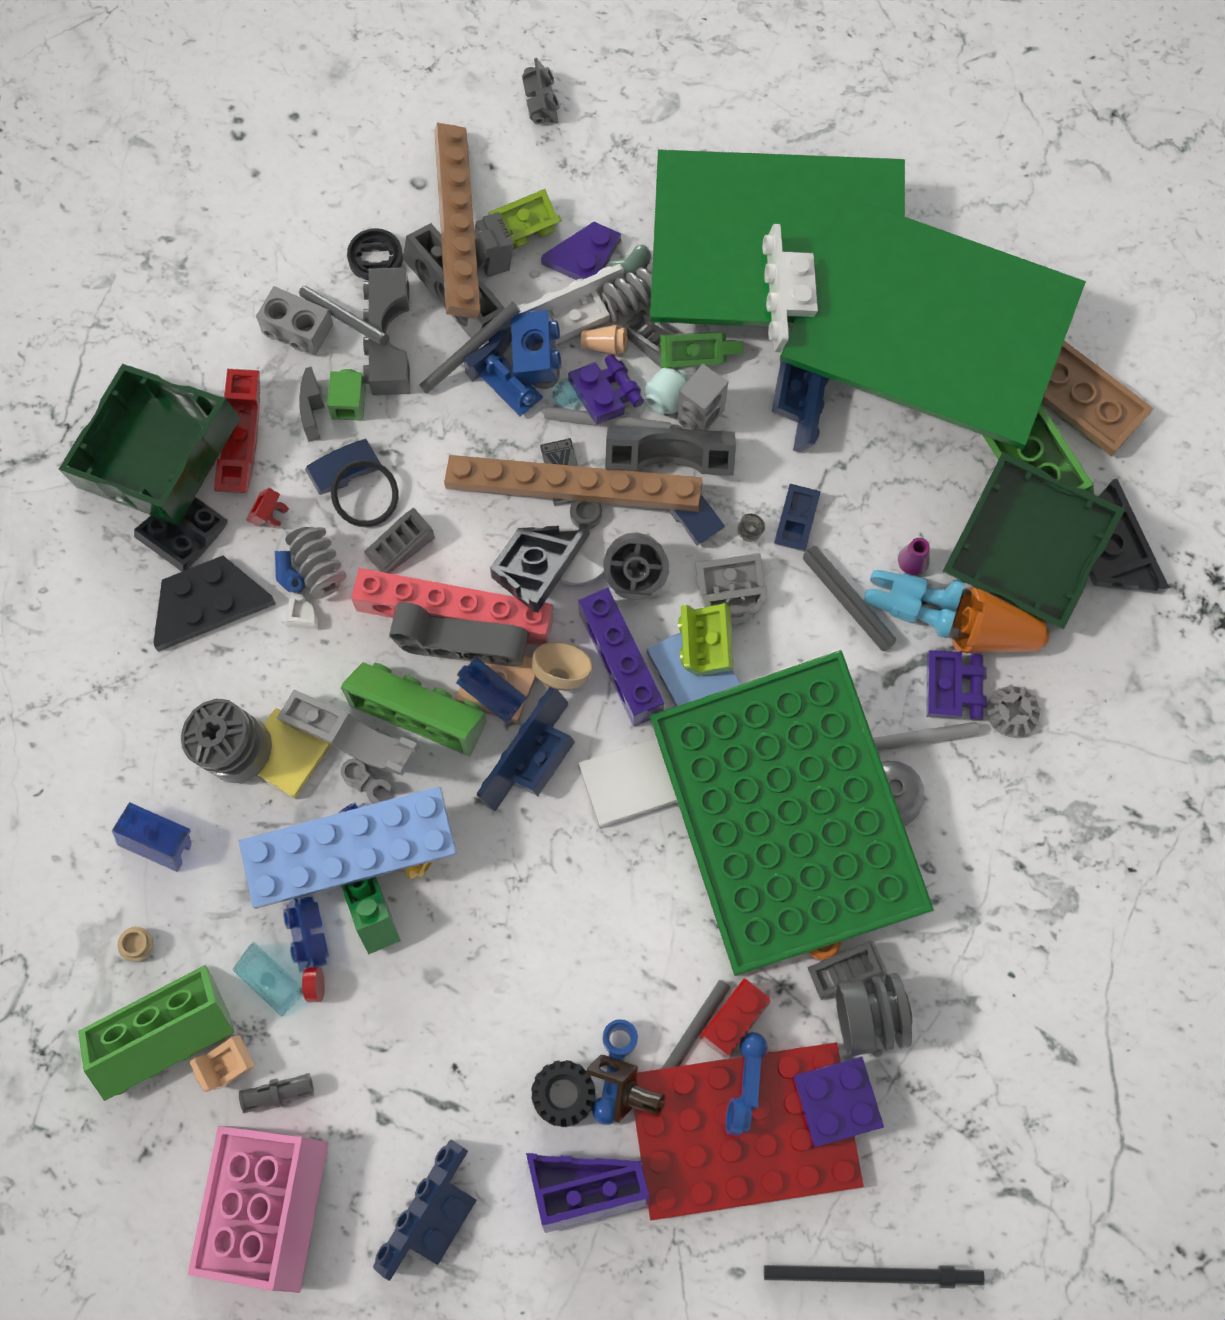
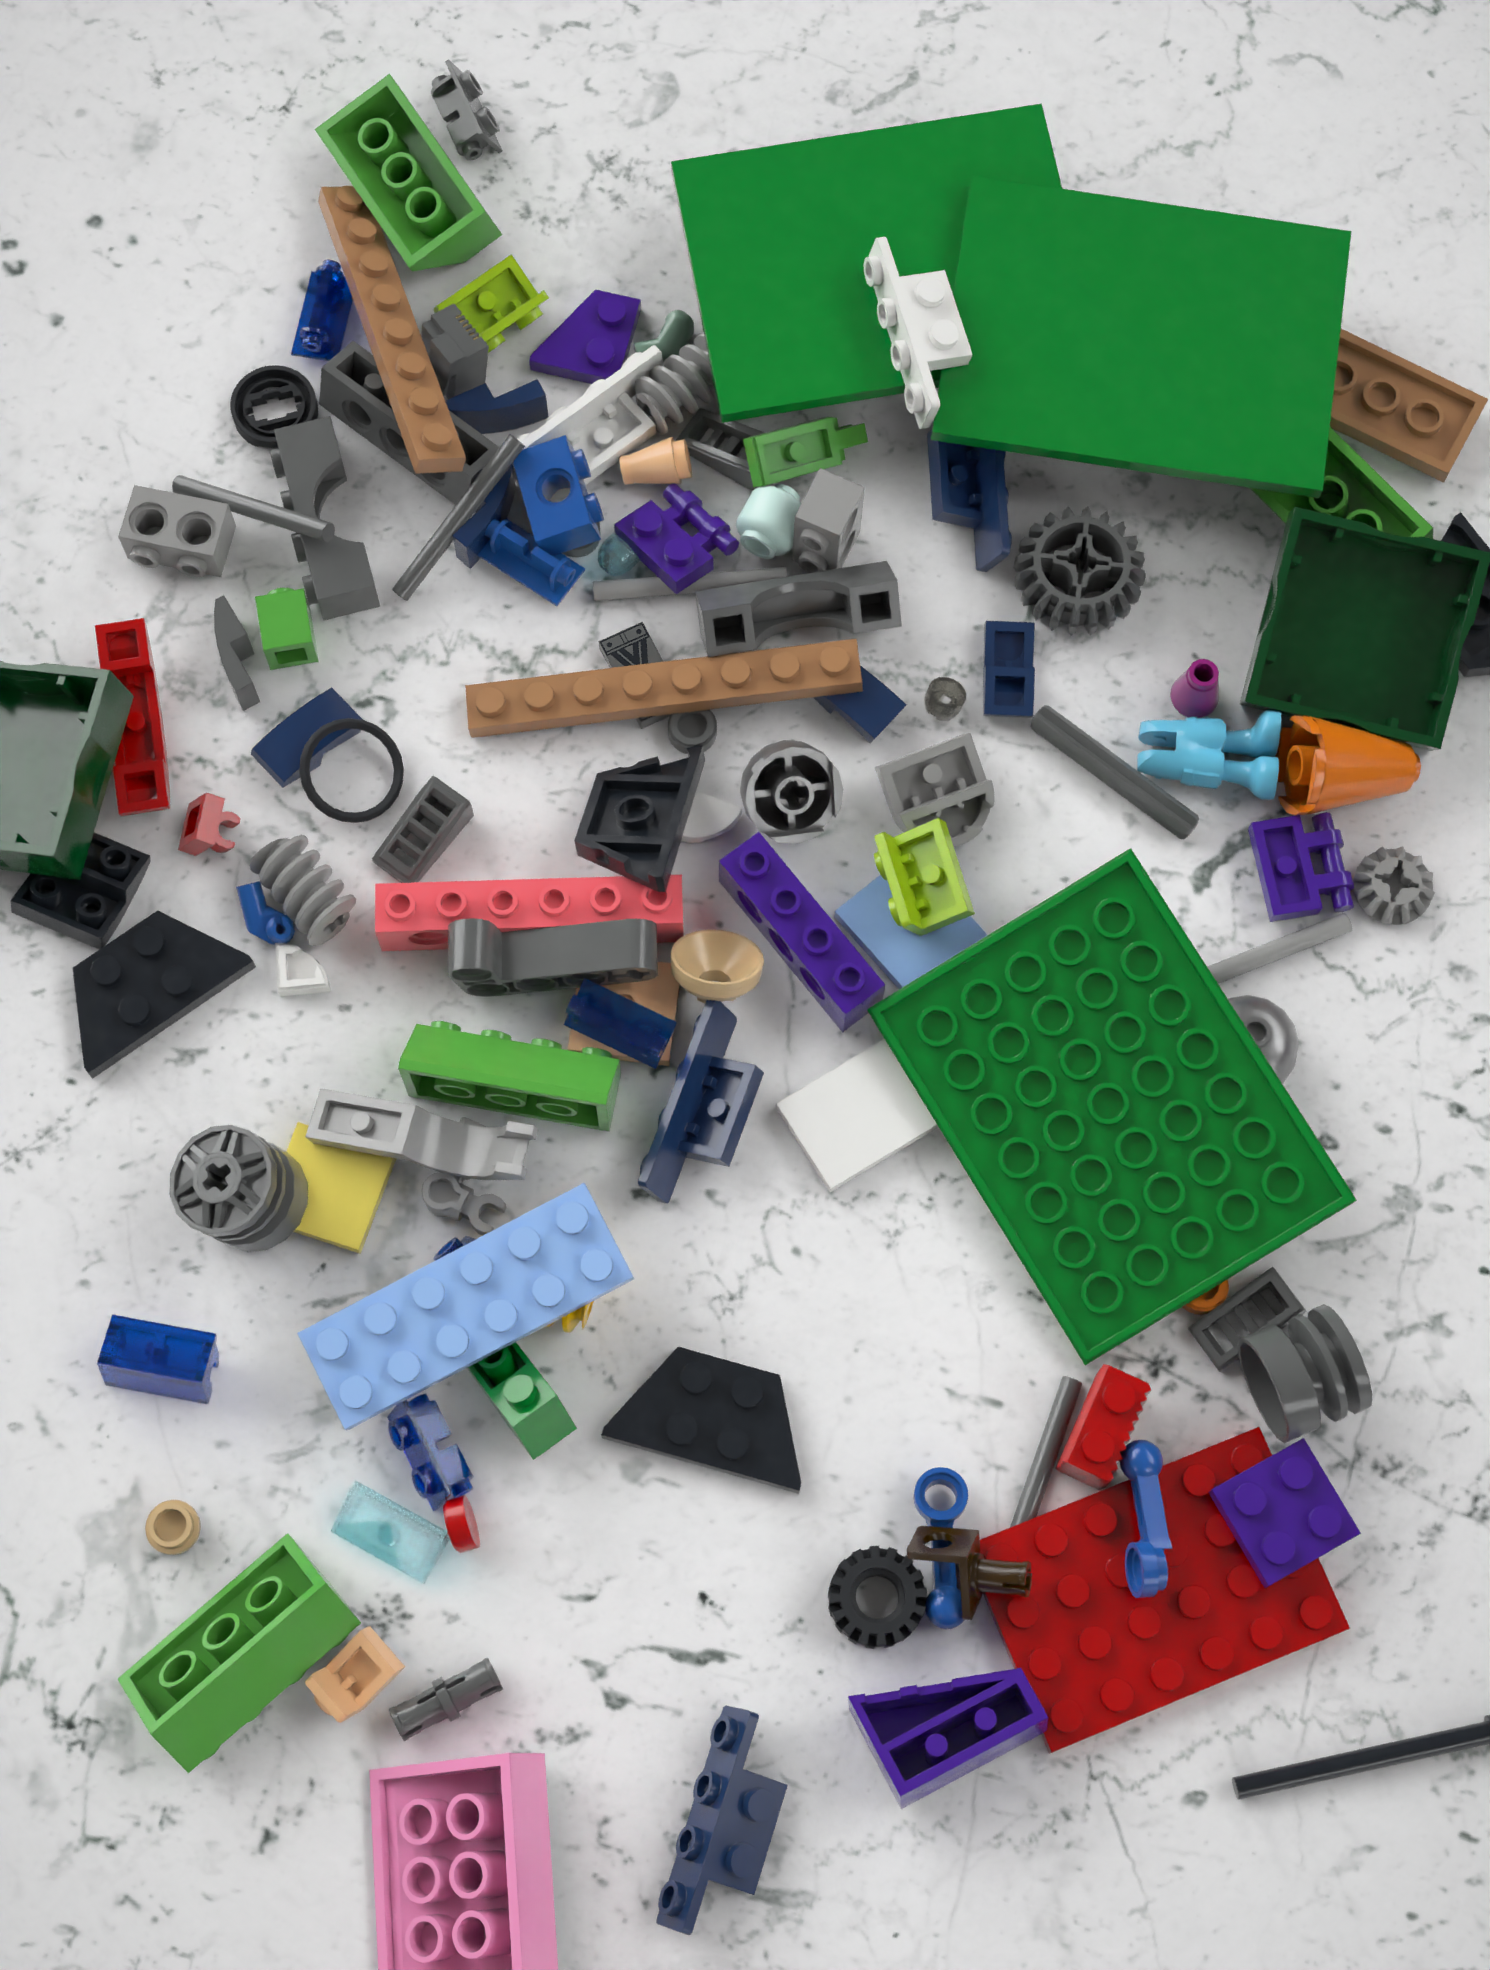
camera: 15 degrees left, 0 degrees up
(420, 202) = (323, 314): none -> clear blue hinge
(488, 954) = (712, 1418): none -> black wing
(492, 128) = (407, 179): none -> bright green slope
(514, 288) = (500, 414): none -> dark blue slope
(884, 473) = (1116, 570): none -> dark grey gear

